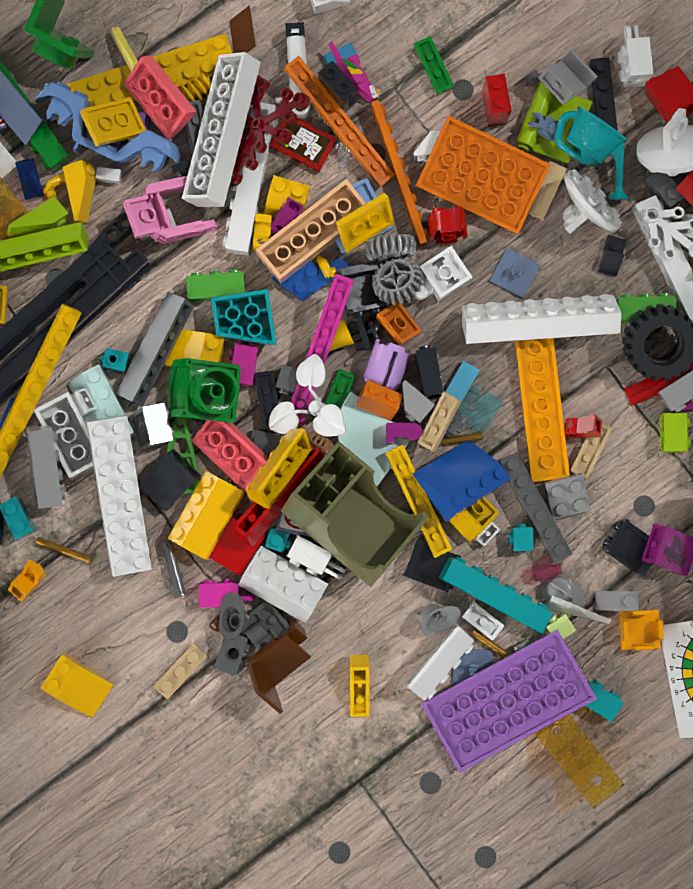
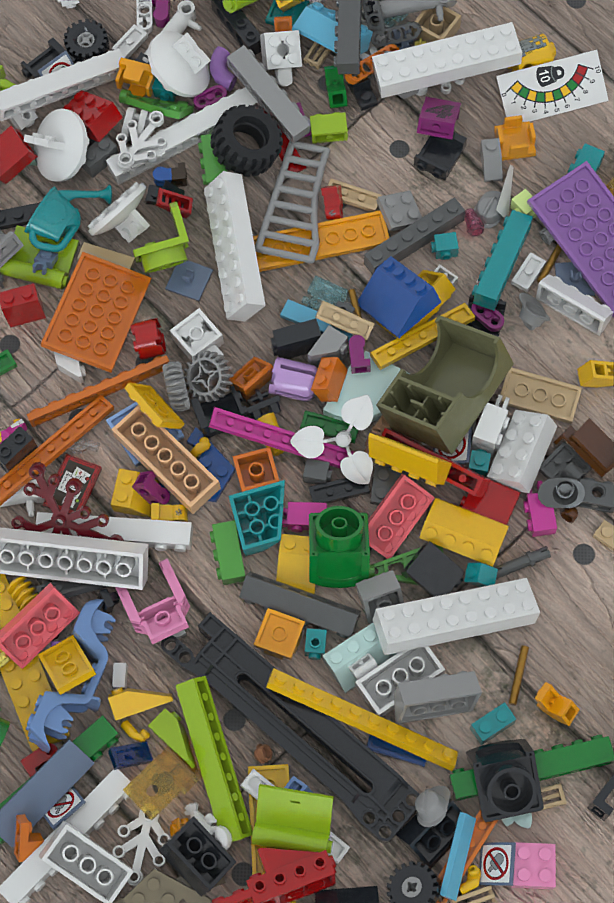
camera: 85 degrees left, 15 degrees down
(18, 301) = (263, 753): none -> nougat plate
(32, 89) = (37, 759): none -> red leg
(126, 326) = (279, 634): none -> light orange panel
(161, 526) = (480, 574): none -> teal brick
(292, 320) = (255, 469): none -> orange brick
(345, 613) = (541, 395): none -> tan plate
(433, 569) = (487, 317): none -> magenta plate
(538, 250) = (167, 252): none -> lime piece
(575, 404) = (313, 210): none -> light grey bar
(597, 276) = (180, 199): none -> red slope
(632, 263) = (176, 175): none -> leg

